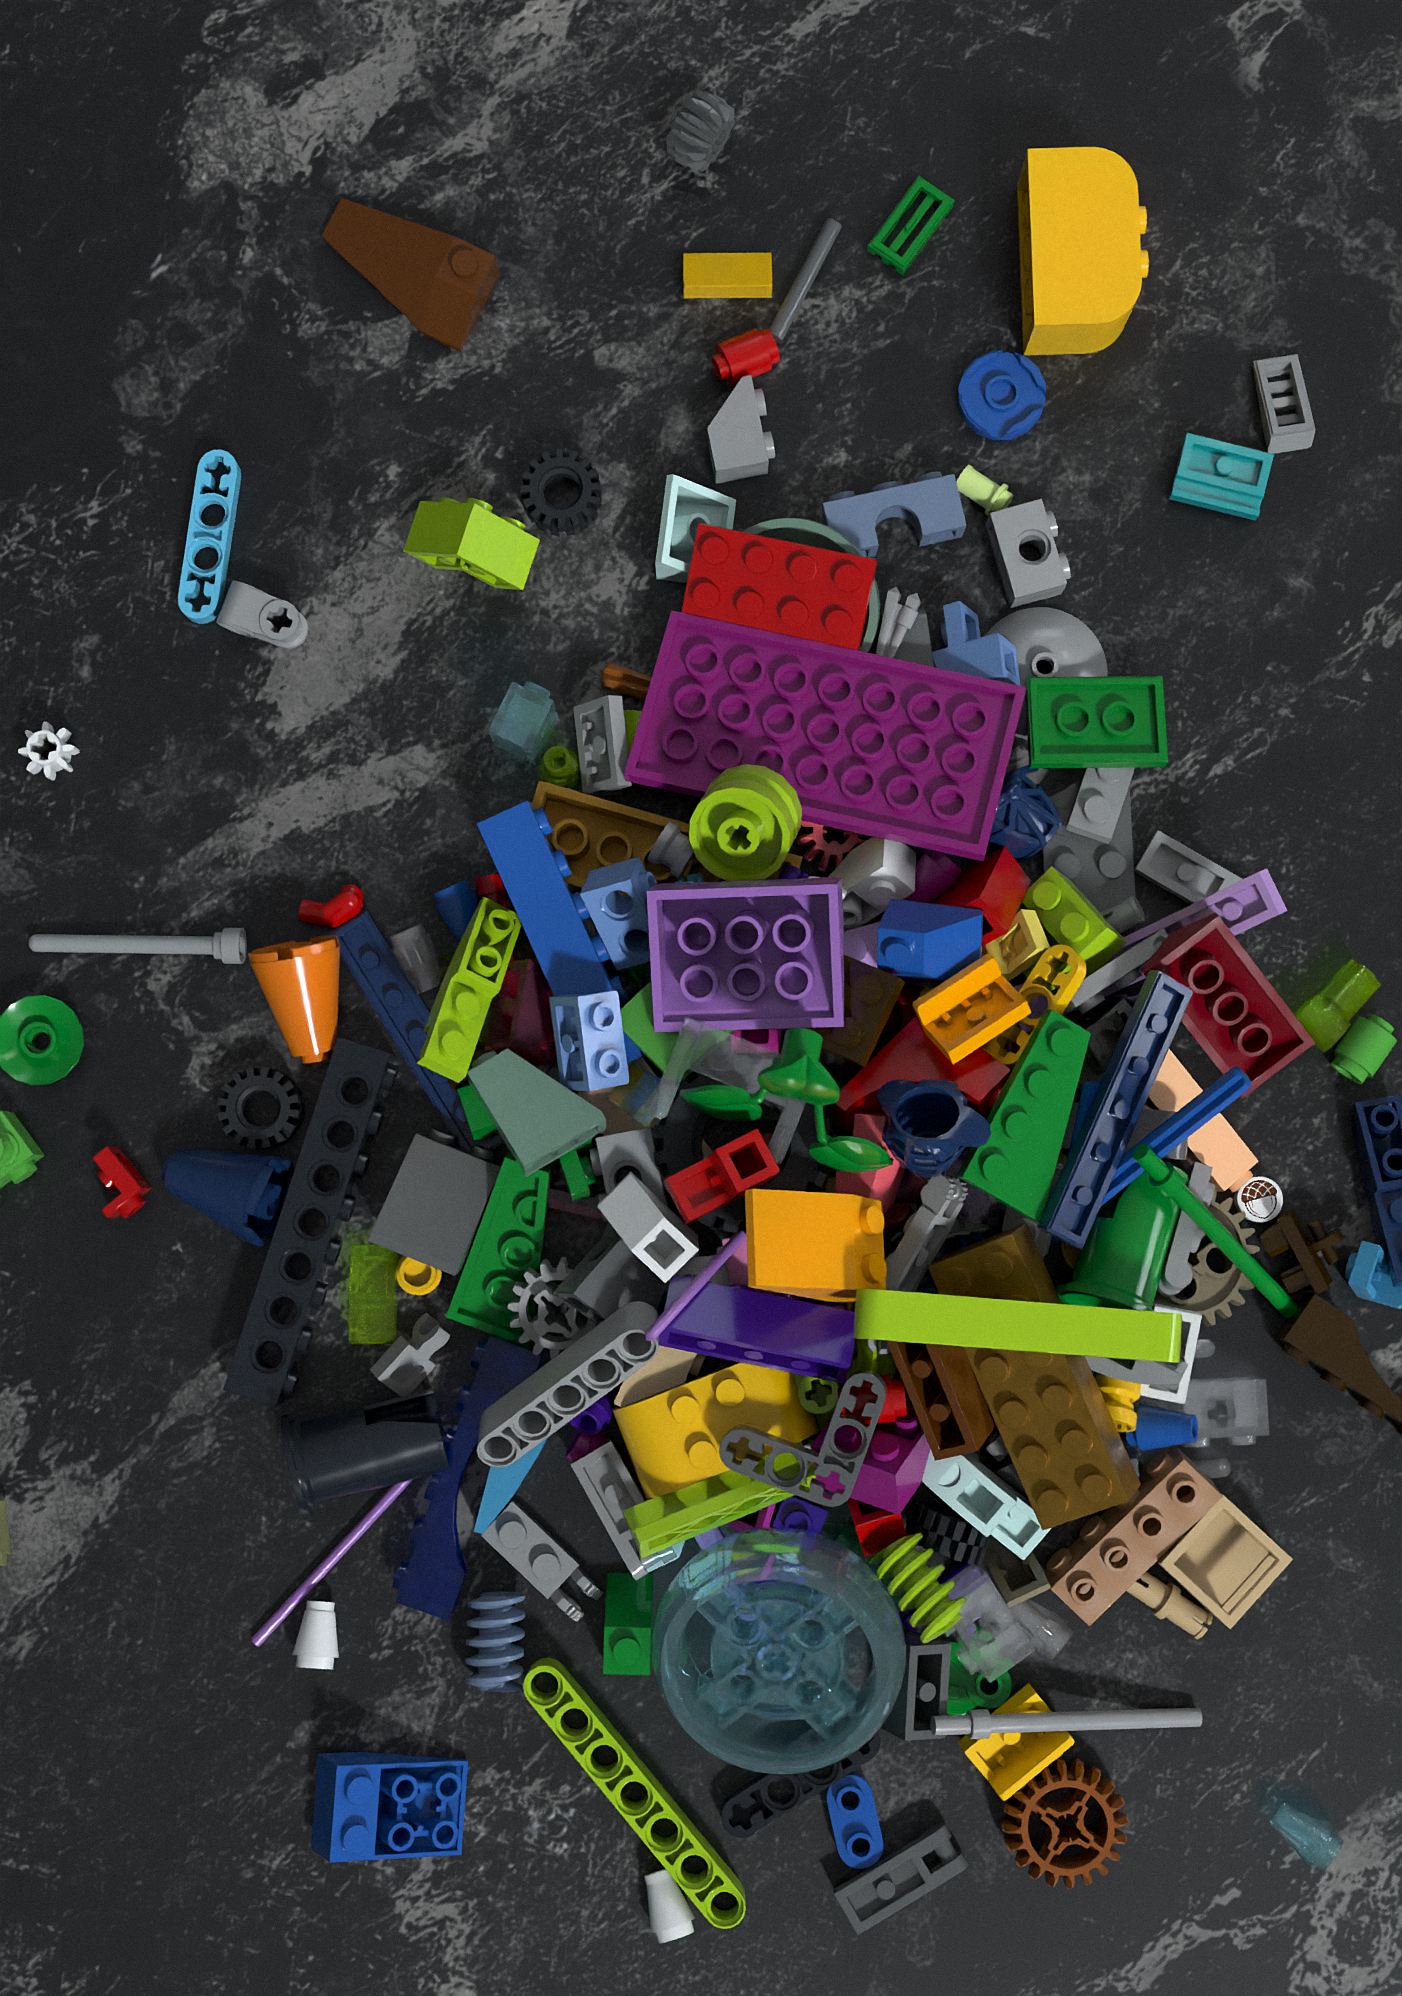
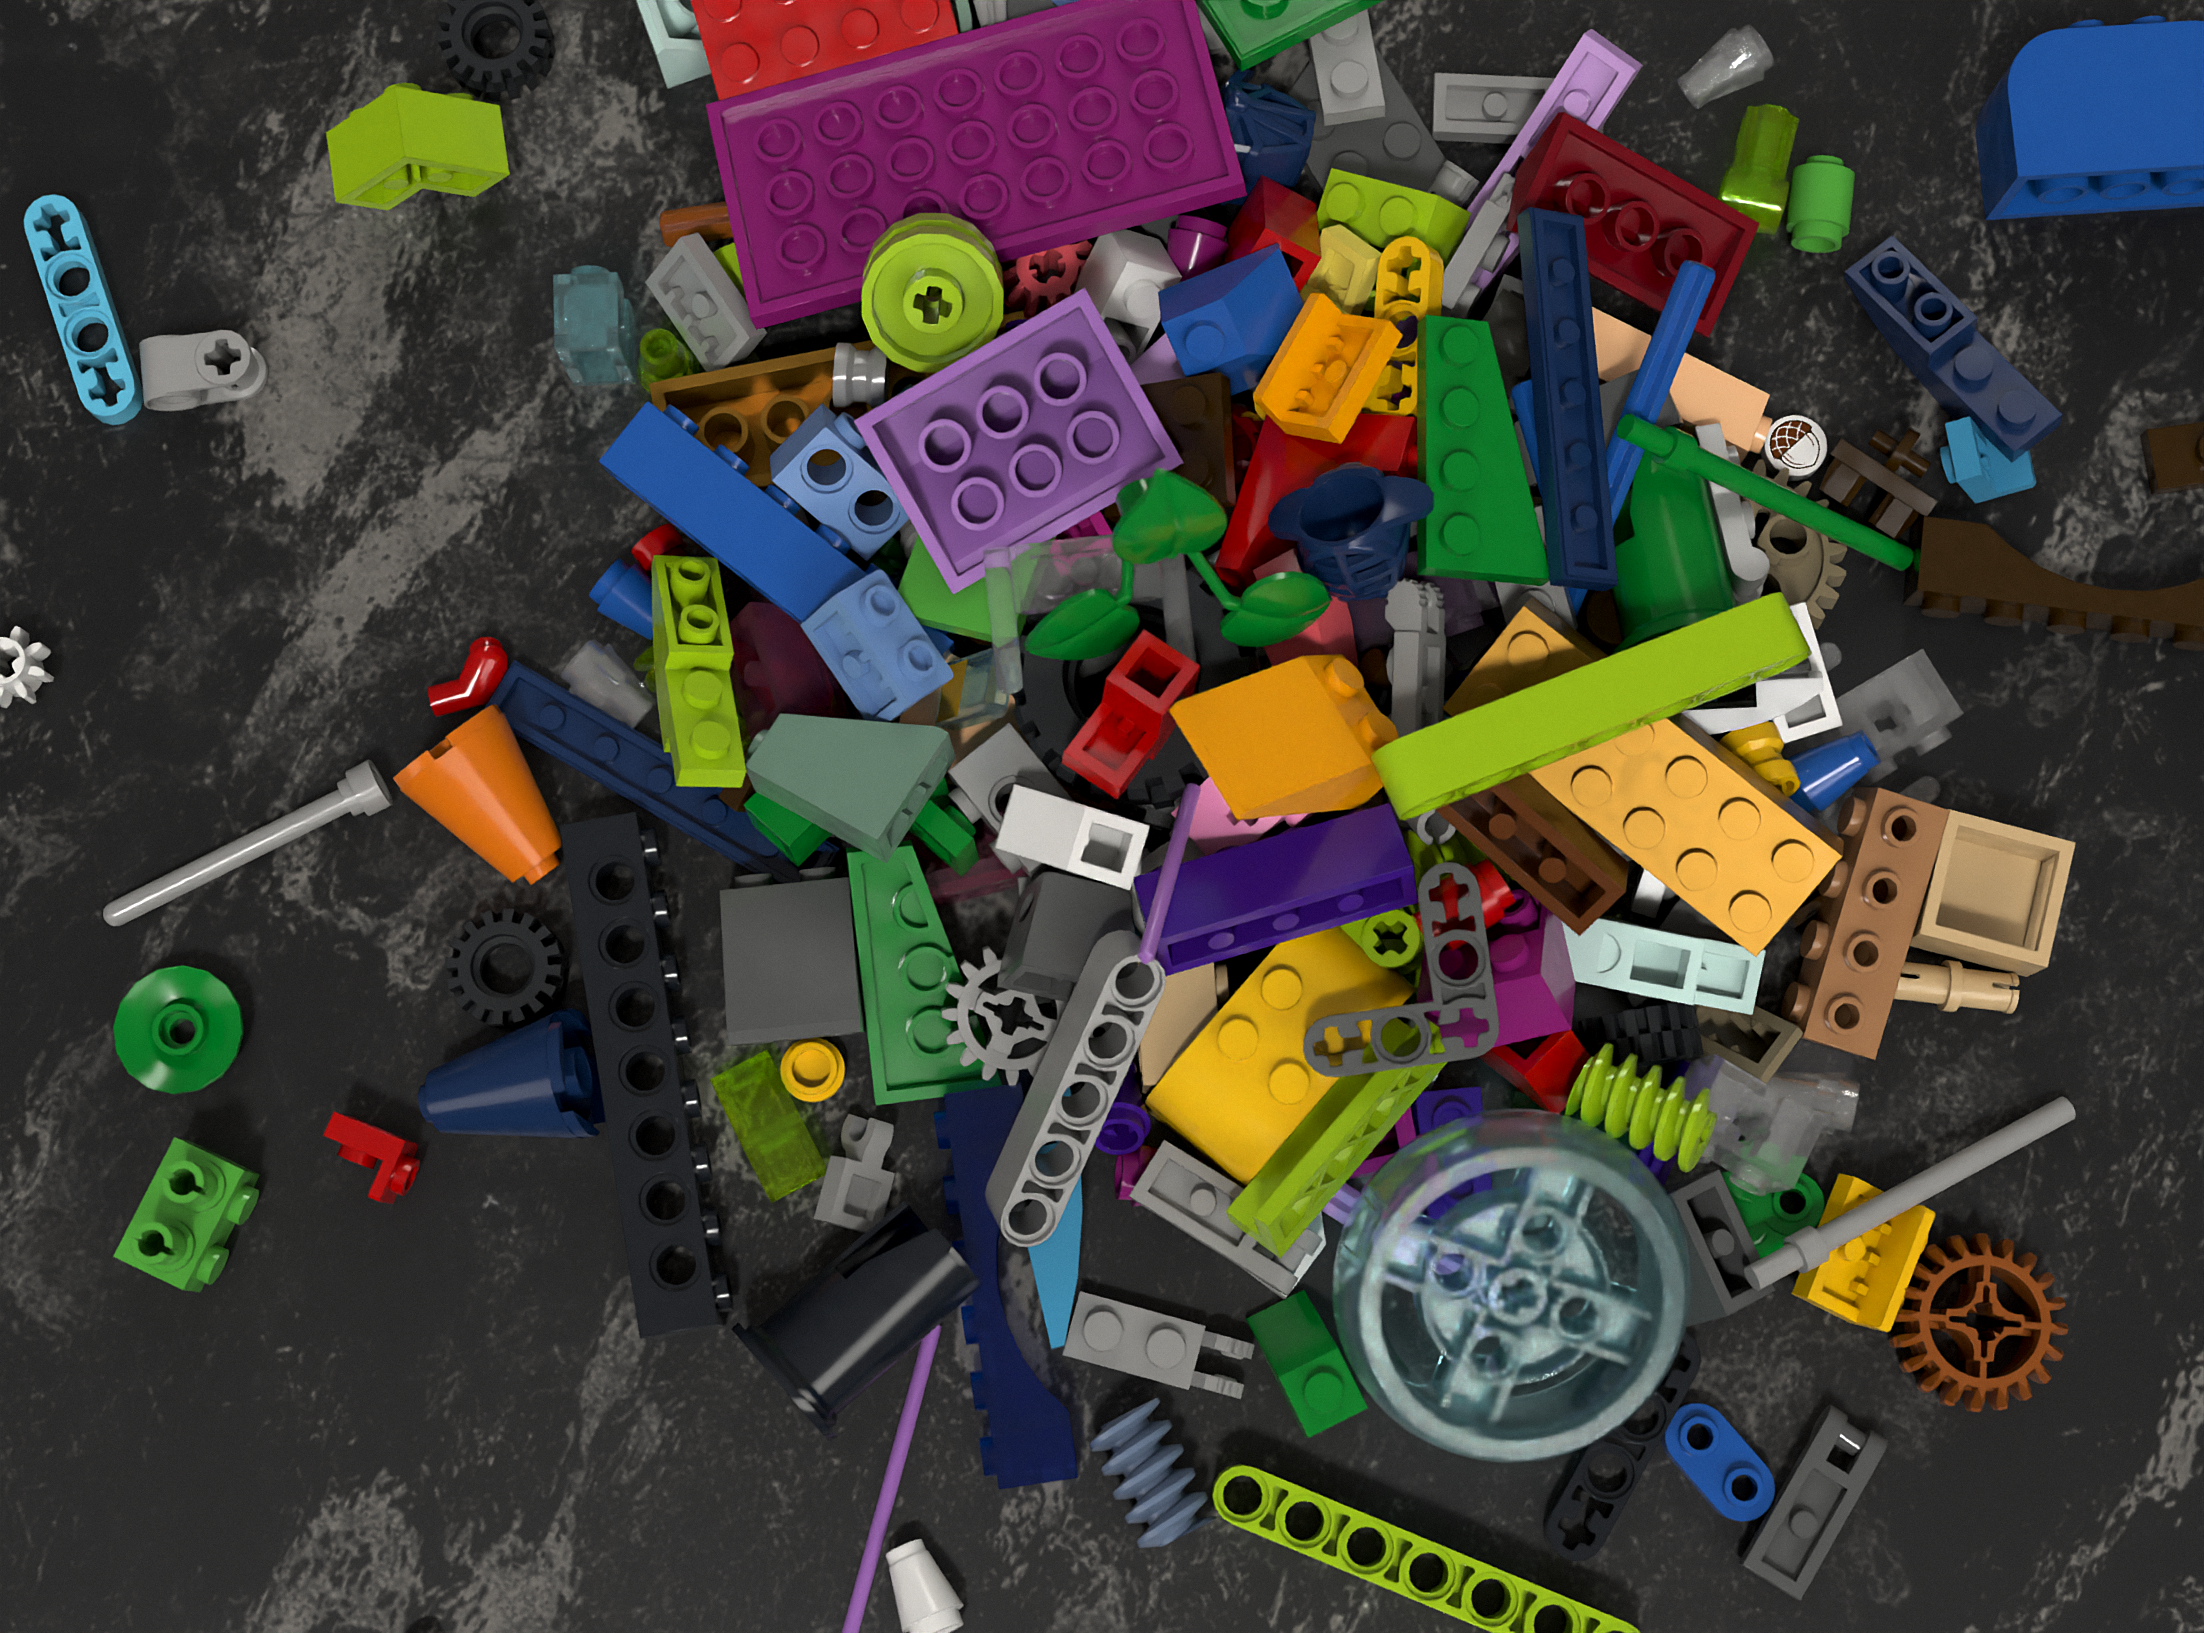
camera: 30 degrees left, 5 degrees down
(1353, 924) = (1728, 66): none -> clear cone

